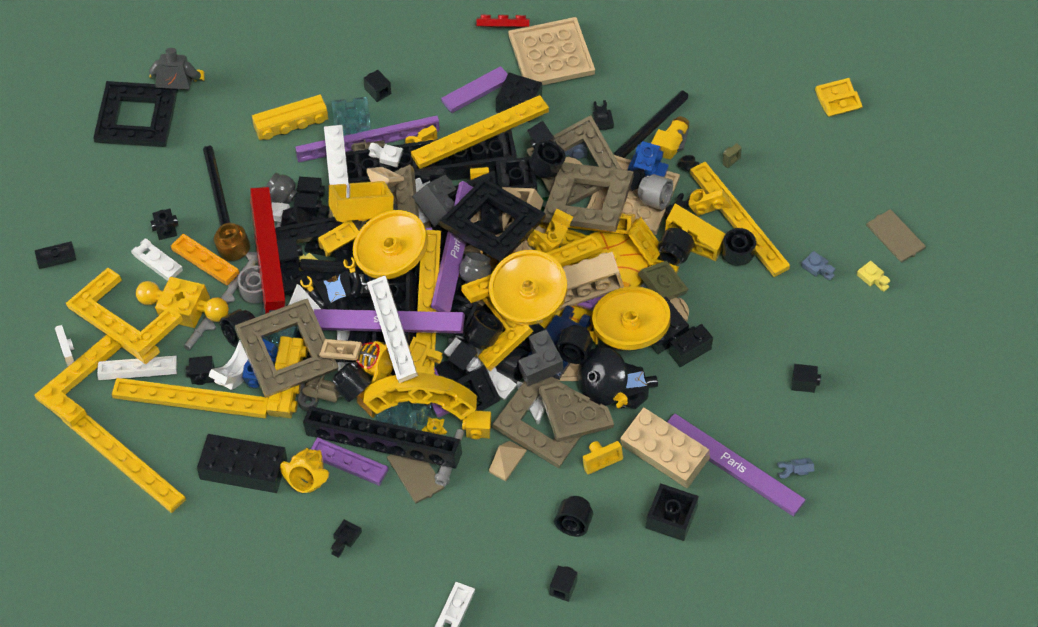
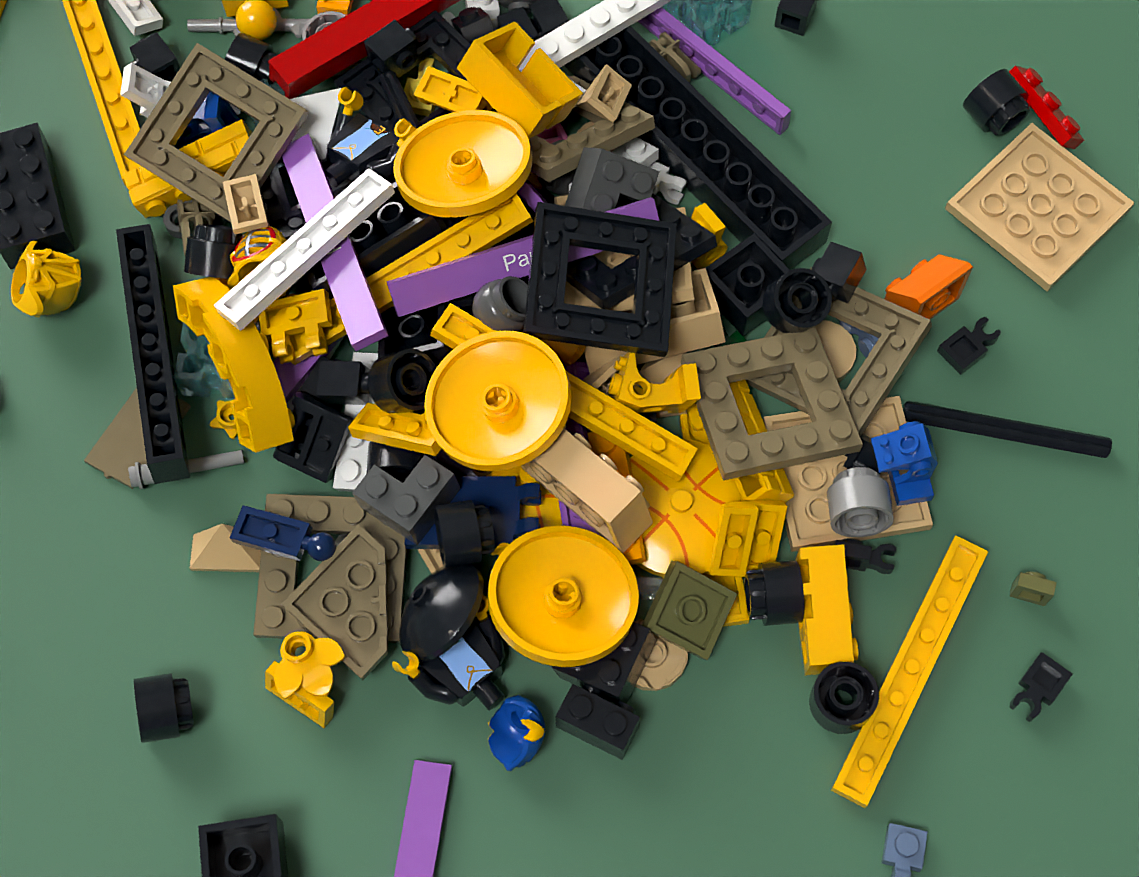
camera: 60 degrees right, 10 degrees up
(351, 462) = (107, 334): medium lavender tile -> none
(388, 155) = (659, 81): white plate -> none
(424, 135) = (746, 119): yellow plate -> none
(475, 90) = (891, 141): medium lavender tile -> none
(477, 425) = (260, 474): yellow brick -> none
(479, 132) = (794, 182): yellow plate -> none
(491, 36) = (998, 103): none -> black piece
(517, 90) = (914, 205): black brick -> none
(522, 422) = (280, 535): none -> dark blue plate
(563, 583) = (32, 757): black brick -> none
(565, 110) = (930, 285): none -> orange slope
(597, 441) = (308, 670): none -> yellow plate
(665, 447) = (365, 786): tan brick -> none
(673, 138) = (990, 476): yellow plate -> none
(676, 378) = (516, 732): none -> blue hair
(688, 162) = (968, 525): black plate -> none
(704, 203) = (899, 592): yellow plate -> none
(775, 175) = (1043, 683): none -> black plate

